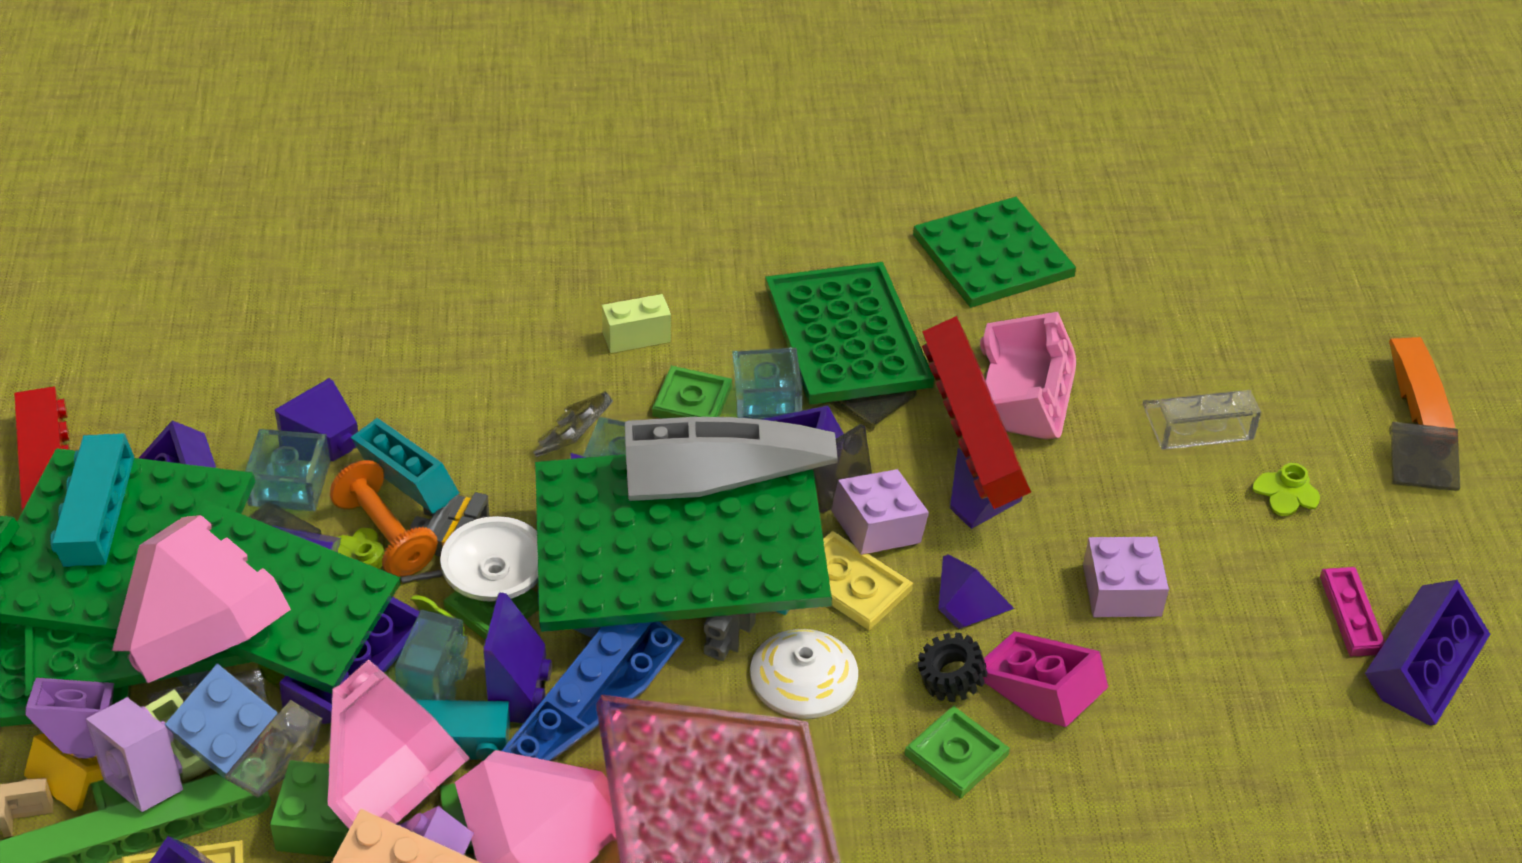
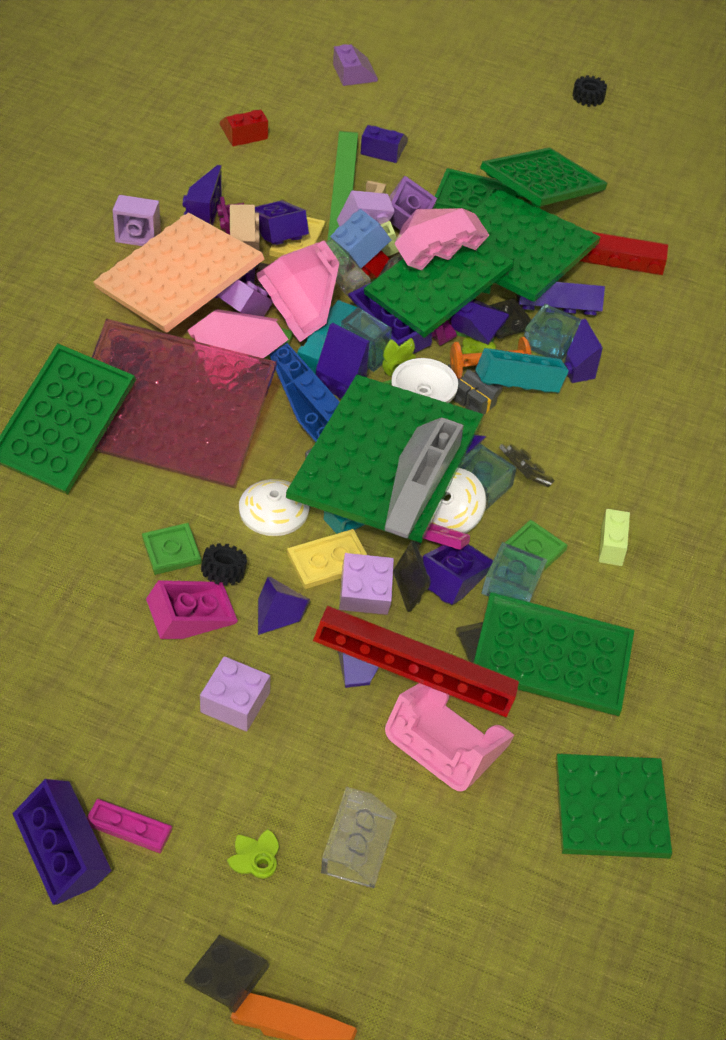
camera: 115 degrees right, 5 degrees up
(93, 500) = (540, 228): teal brick -> none

